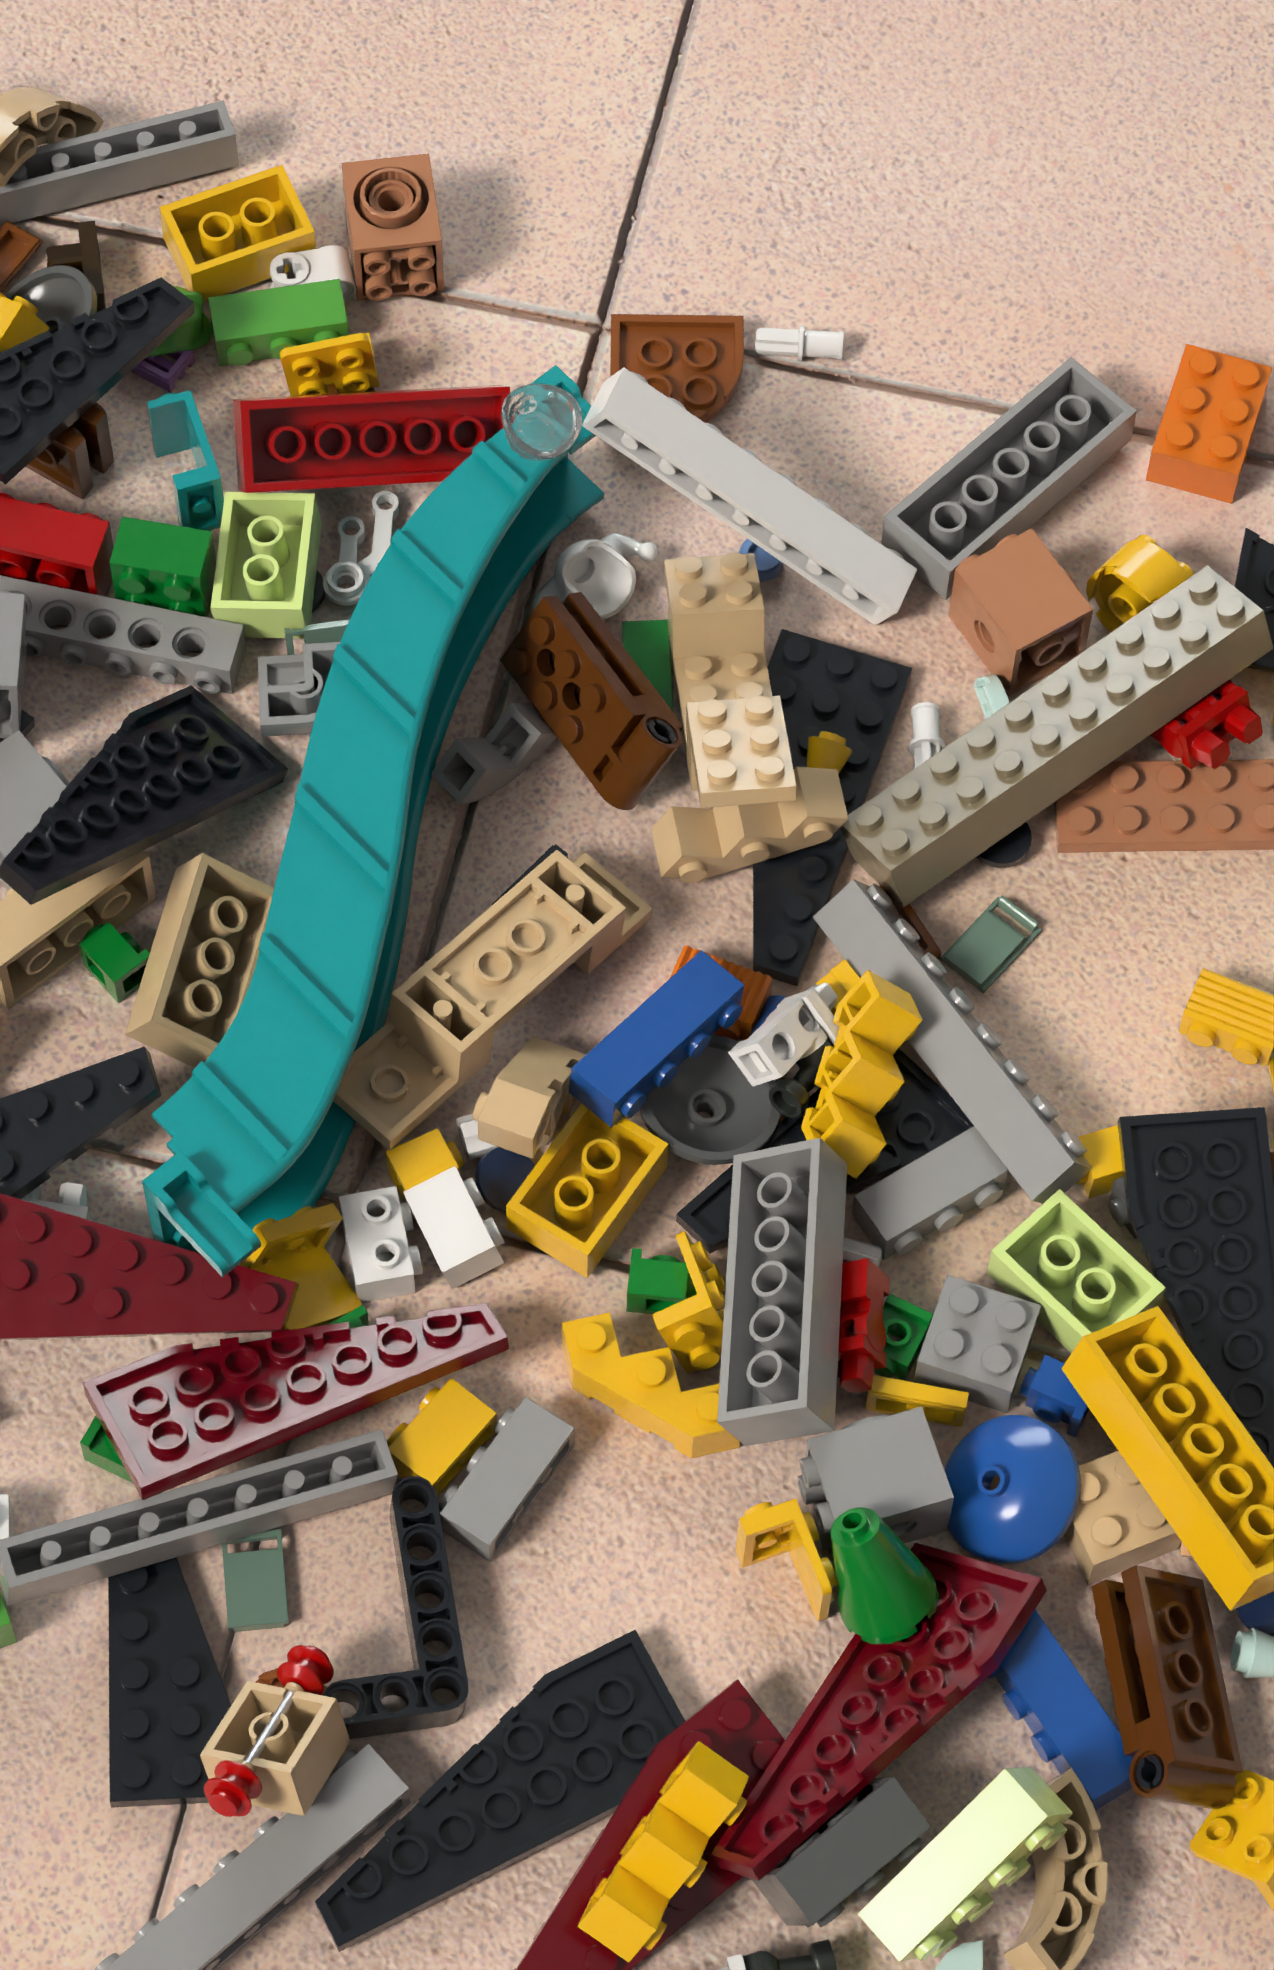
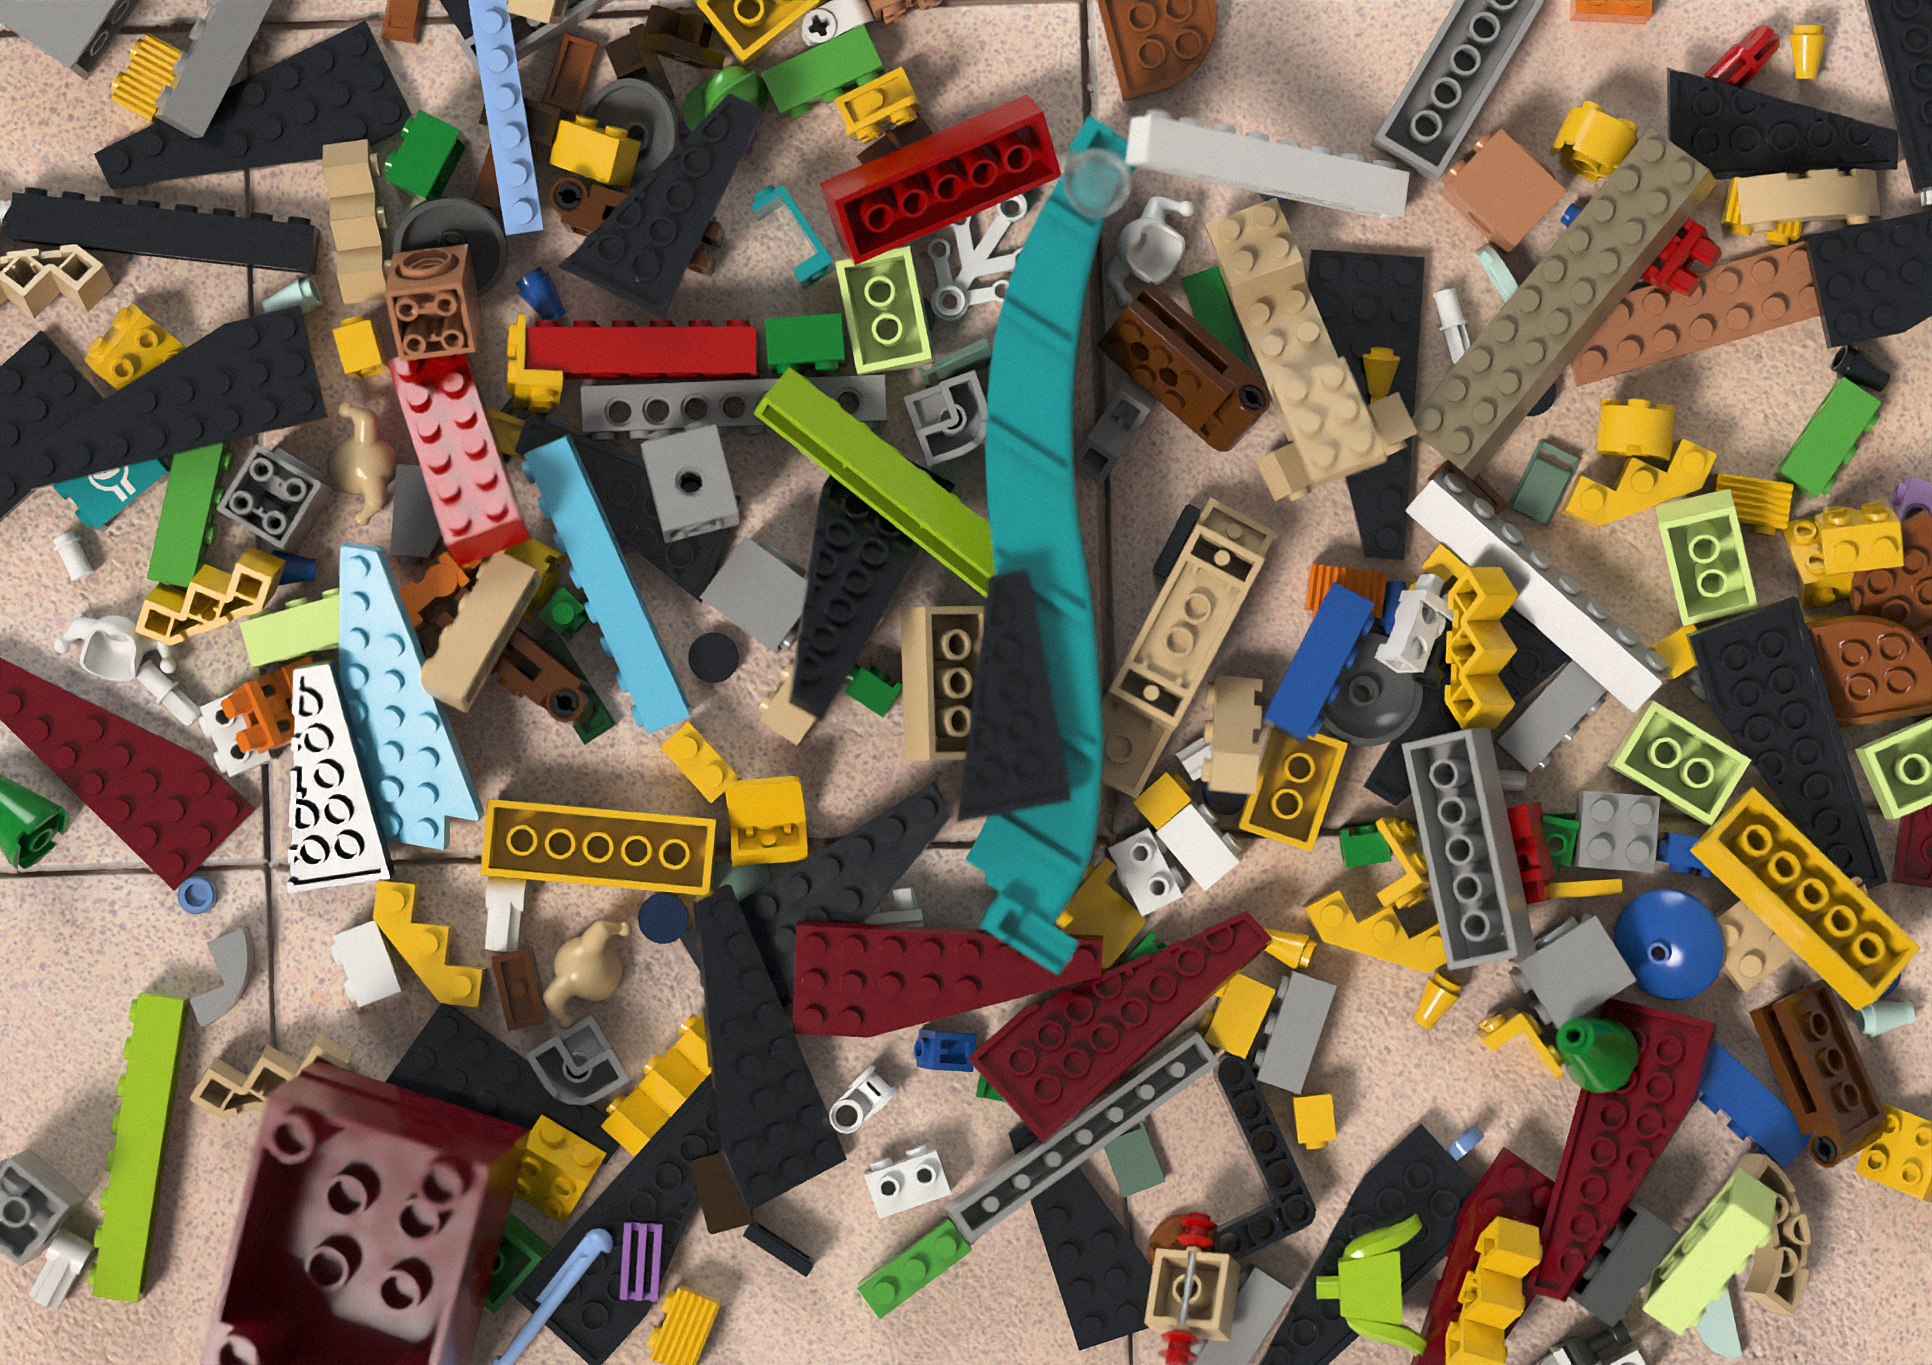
camera: 10 degrees left, 25 degrees up
(59, 1388) = (944, 1050): none -> blue bracket
(129, 245) = (680, 38): none -> dark brown panel
(193, 708) = (880, 477): none -> lime brick
(258, 965) = (1013, 731): none -> black wing
(500, 1589) = (1314, 1119): none -> yellow brick
(512, 1803) = (1372, 1286): none -> lime torso
(530, 1379) = (1292, 948): none -> yellow cone
(686, 1671) = (1465, 1142): none -> medium blue tile
(698, 1488) = (1437, 998): none -> yellow cone
(1103, 966) = (1639, 486): none -> yellow brick
(1113, 896) = (1635, 429): none -> yellow brick
(1164, 1044) = (1706, 557): none -> yellowish green brick

